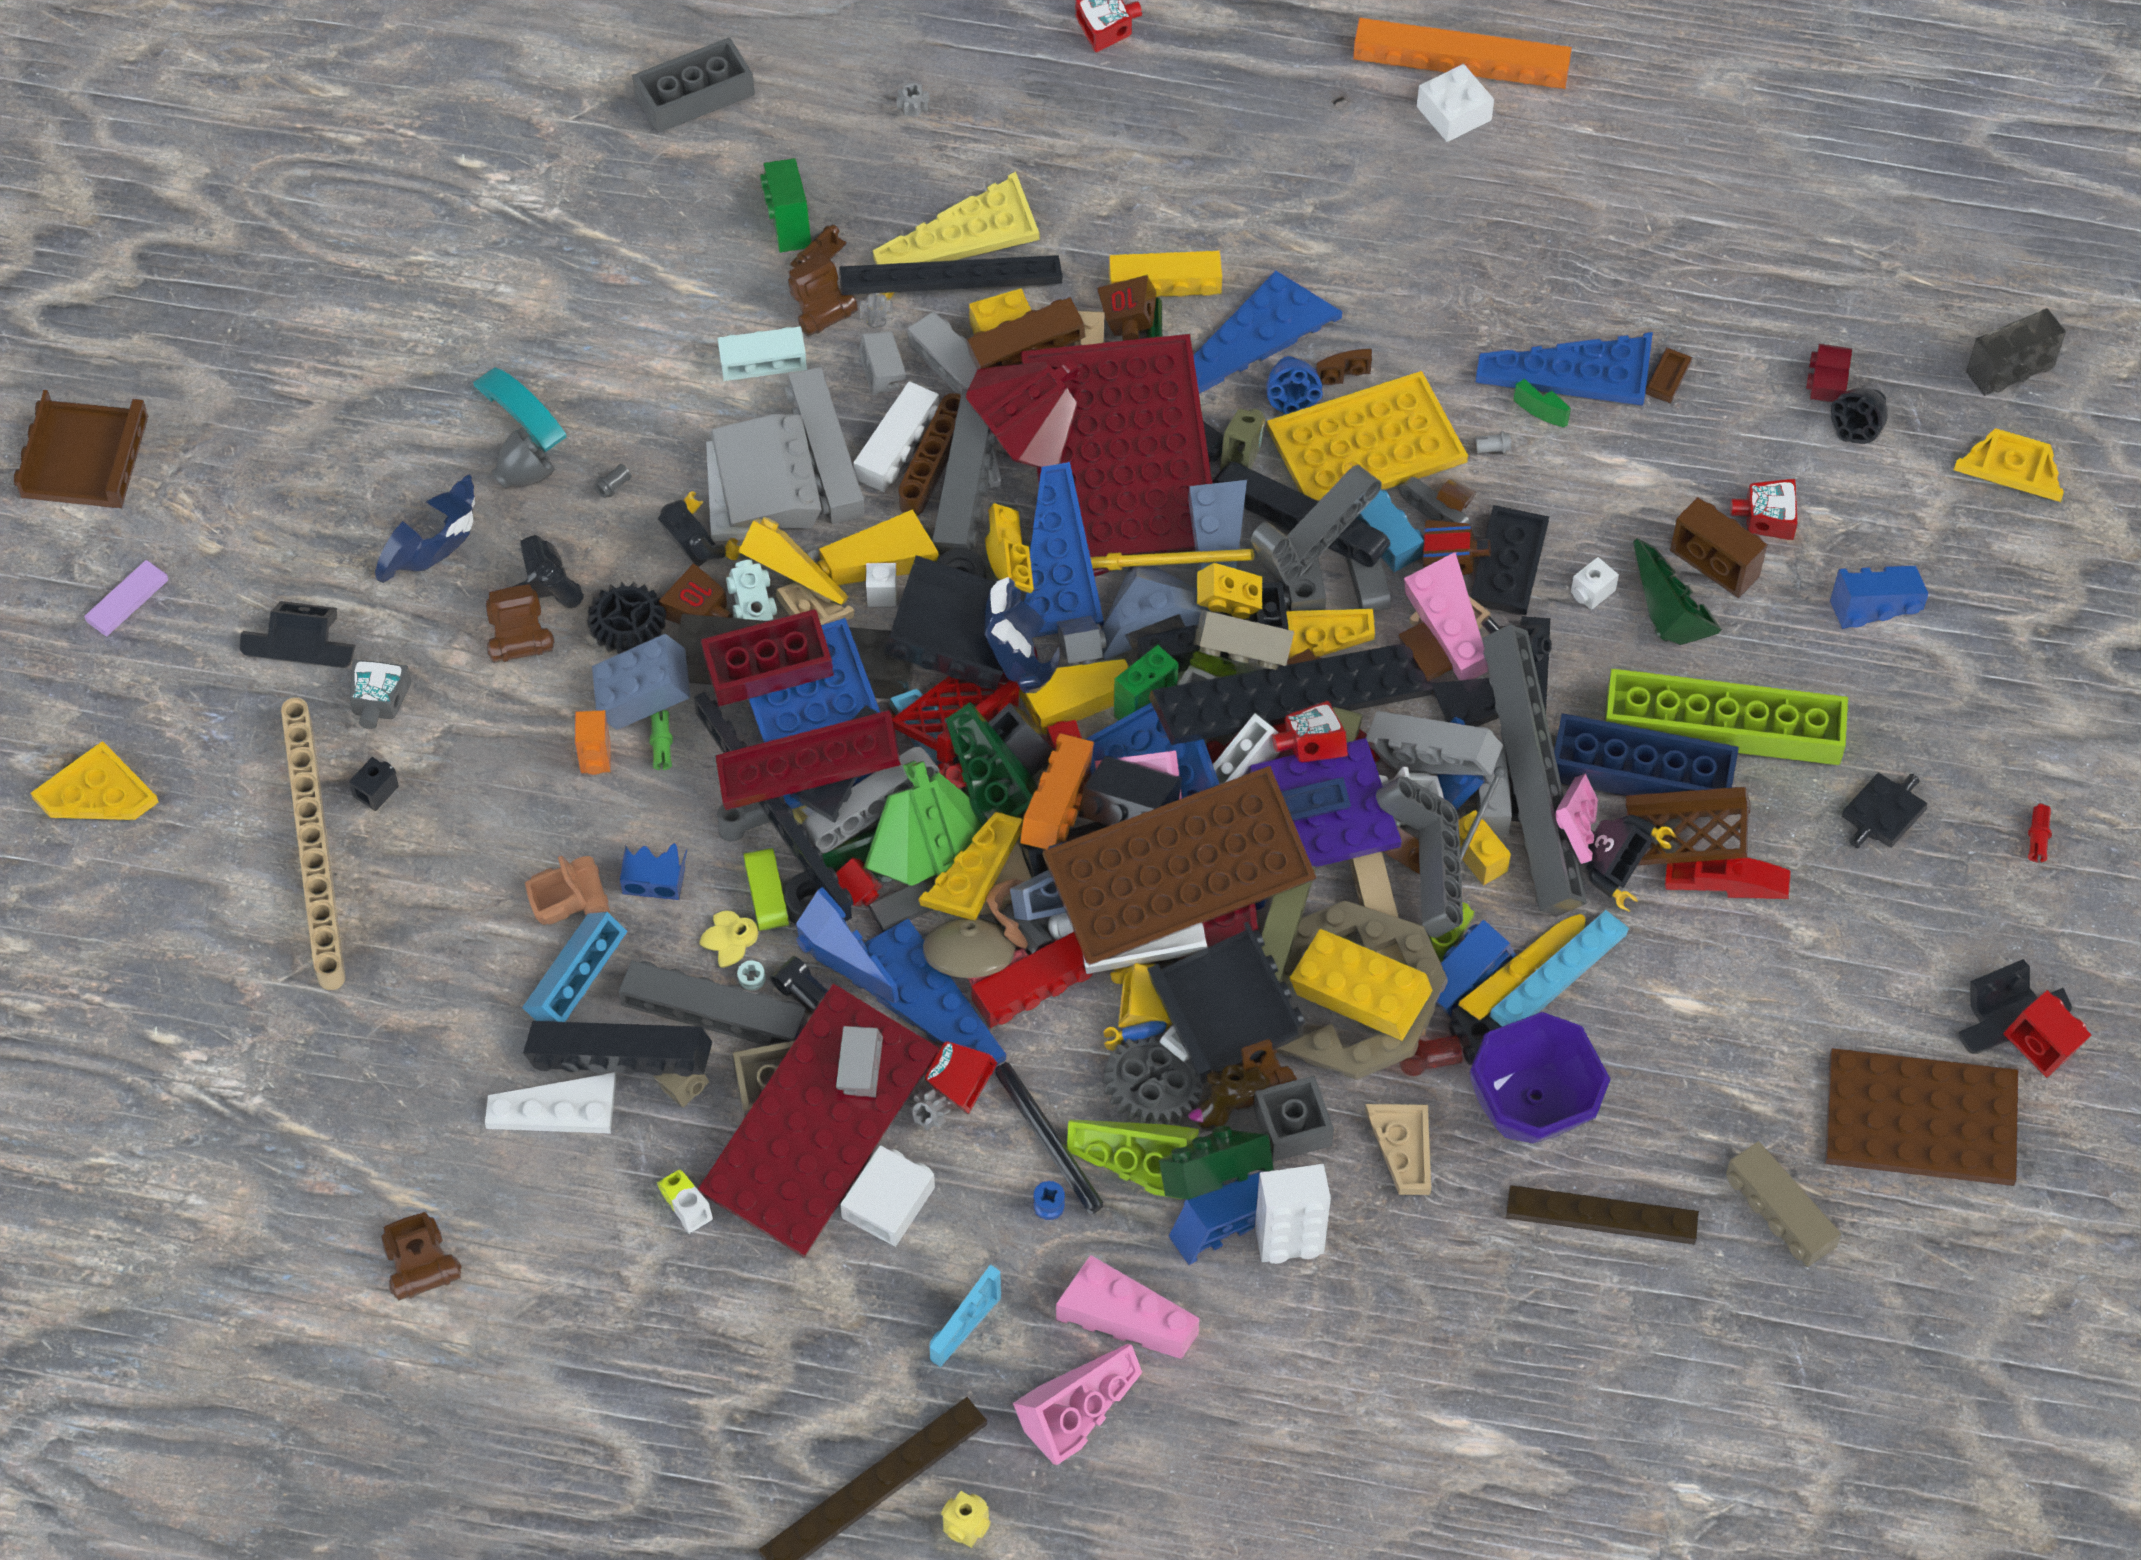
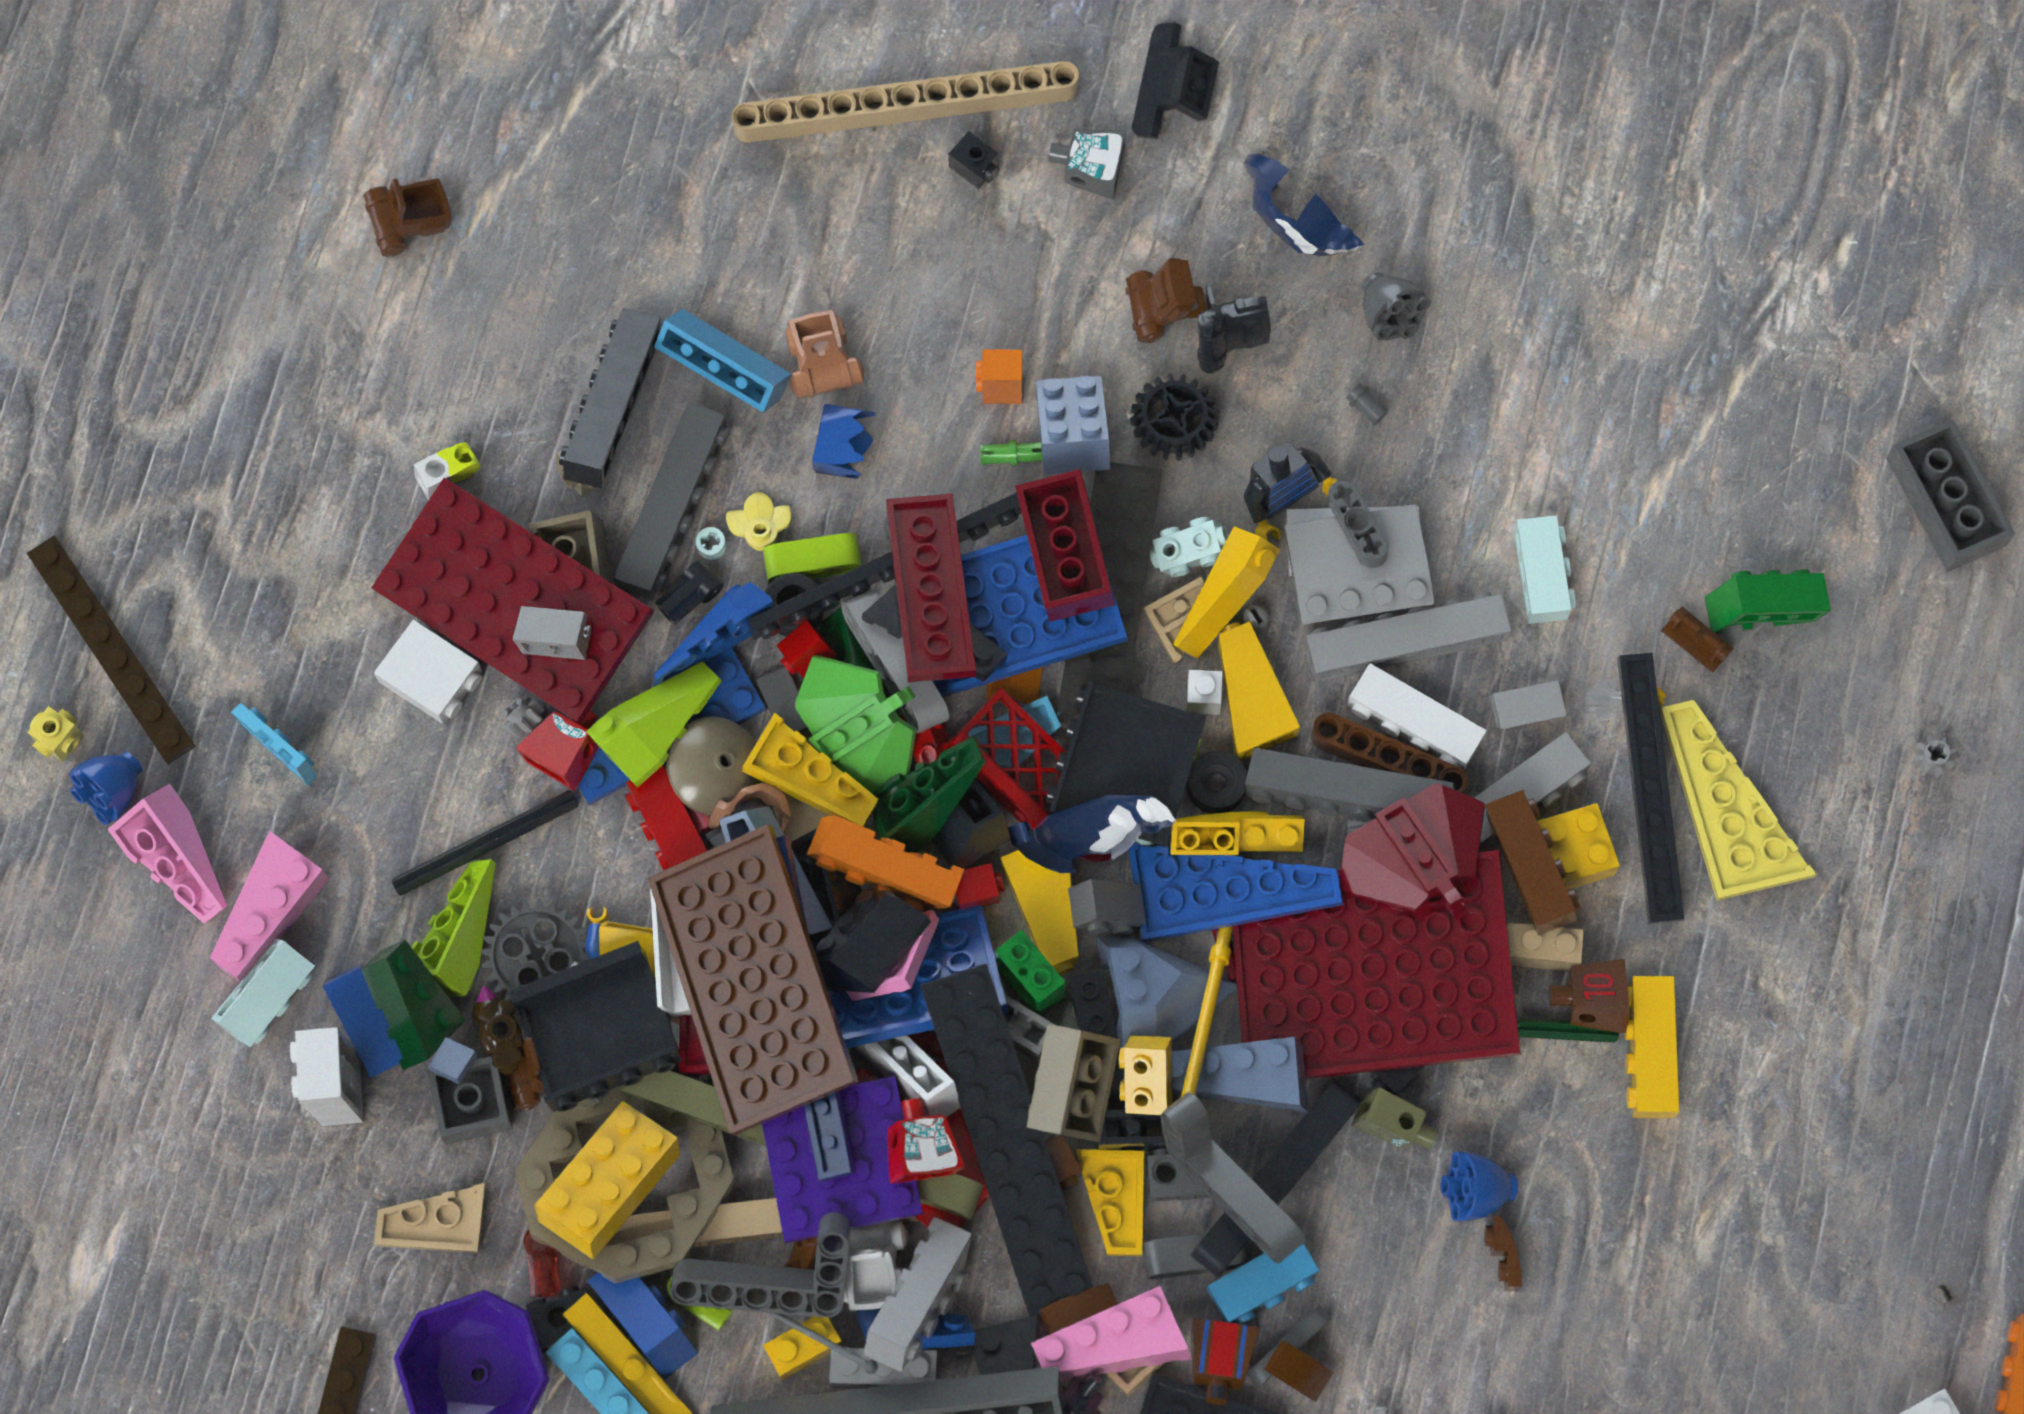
camera: 95 degrees right, 15 degrees up
(522, 406) = (1475, 304): teal slope -> none
(560, 1107) = (570, 344): white wing -> none
(695, 595) = (1193, 490): reddish brown torso -> none
(728, 477) = (1357, 537): none -> dark grey beam
(818, 295) = (1619, 630): reddish brown piece -> none
(937, 991) = (645, 726): none -> lime wedge
(1017, 1463) = (106, 784): none -> blue piece
(1046, 1207) = (411, 844): blue wheel -> none
(1216, 1304) = (264, 993): none -> light aqua brick
(1260, 328) = (1579, 1166): blue wing -> none
(1265, 1120) = (452, 1060): none -> sand blue tile
(1386, 429) = (1392, 1273): yellow plate -> none

